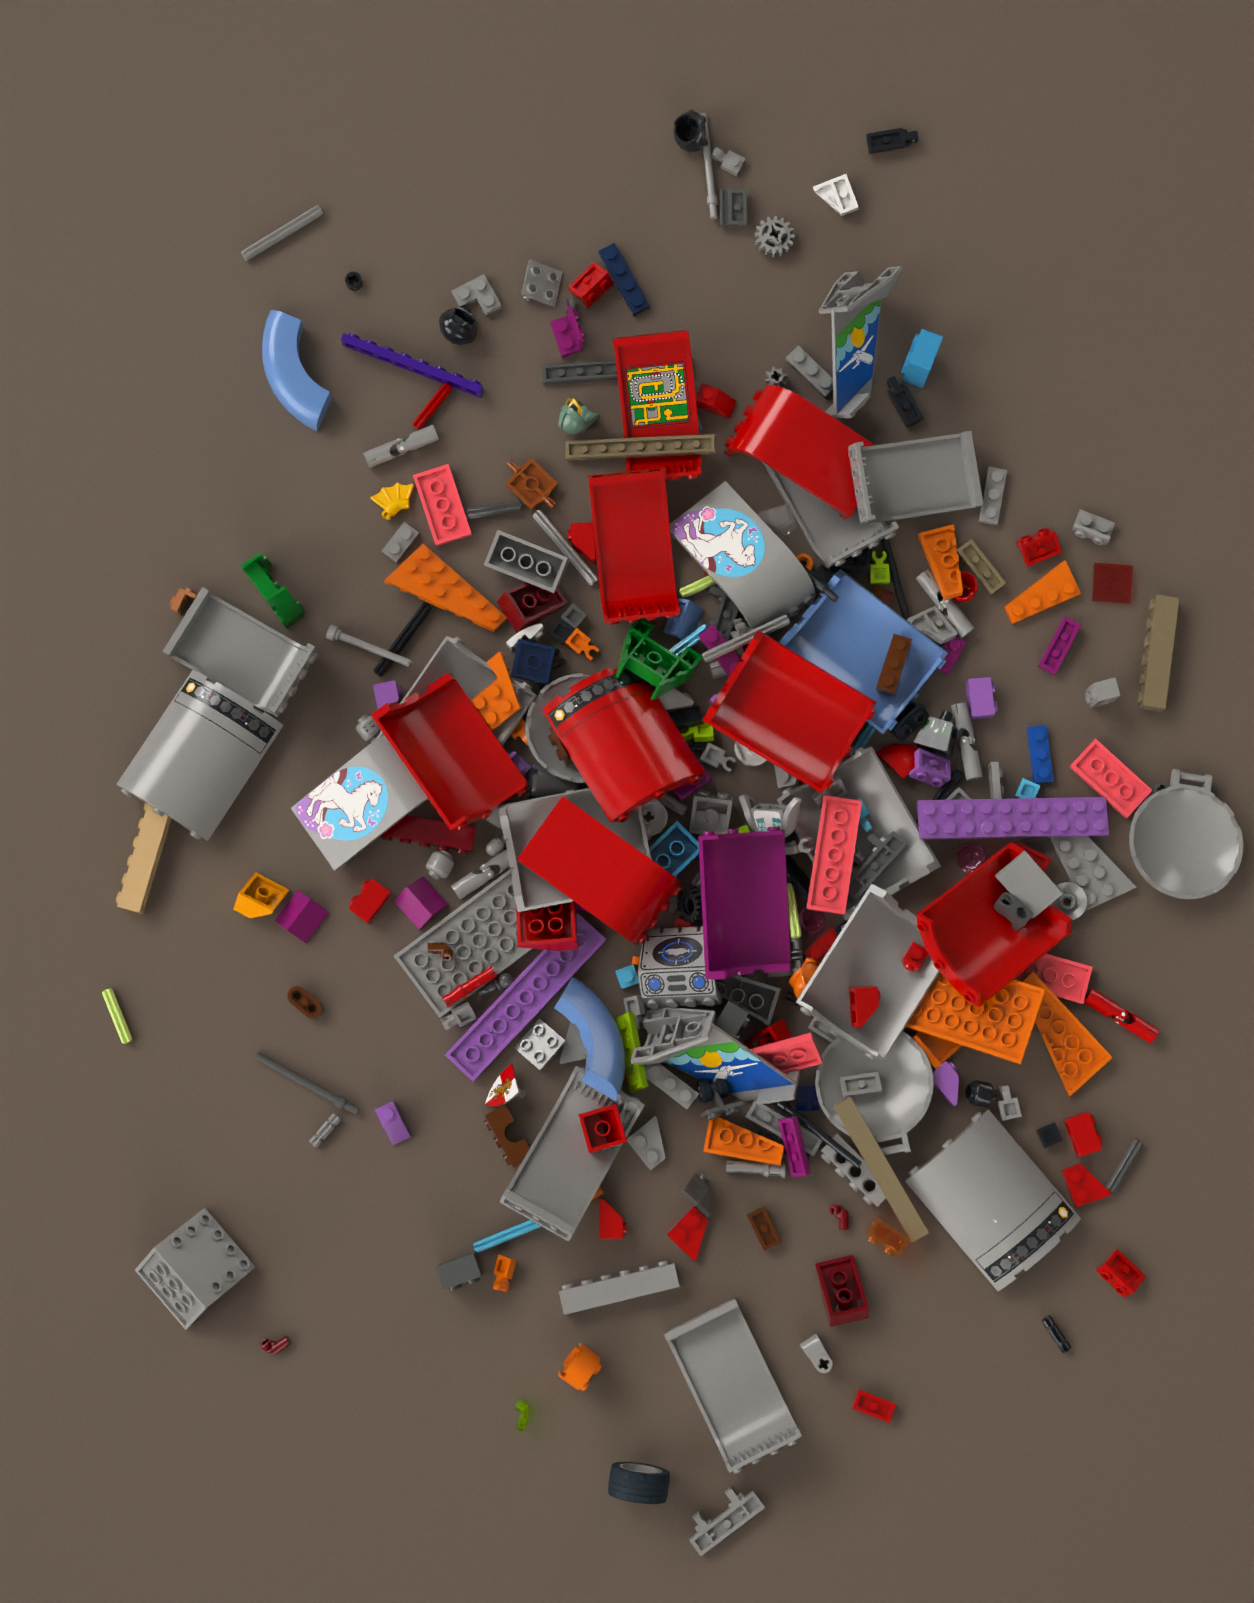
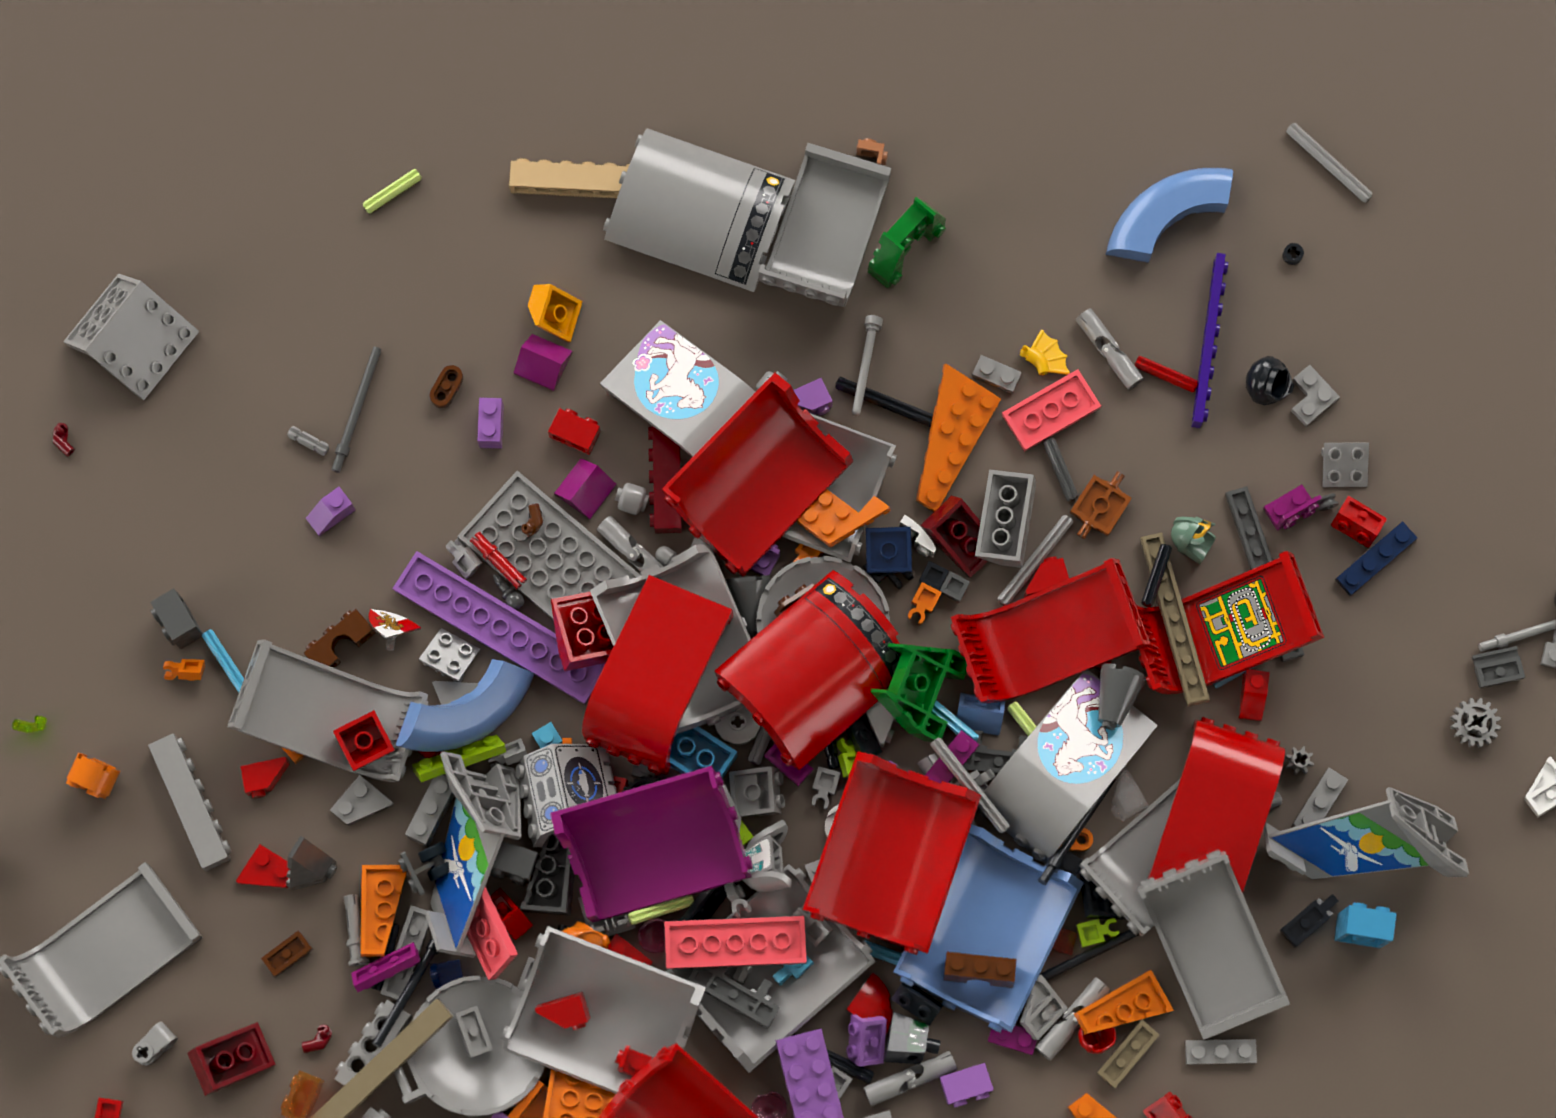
camera: 80 degrees right, 5 degrees down
(346, 970) = (490, 422): none -> medium lavender brick
(602, 452) = (1156, 575): none -> black axle
(696, 504) = (1117, 694): none -> dark grey cone

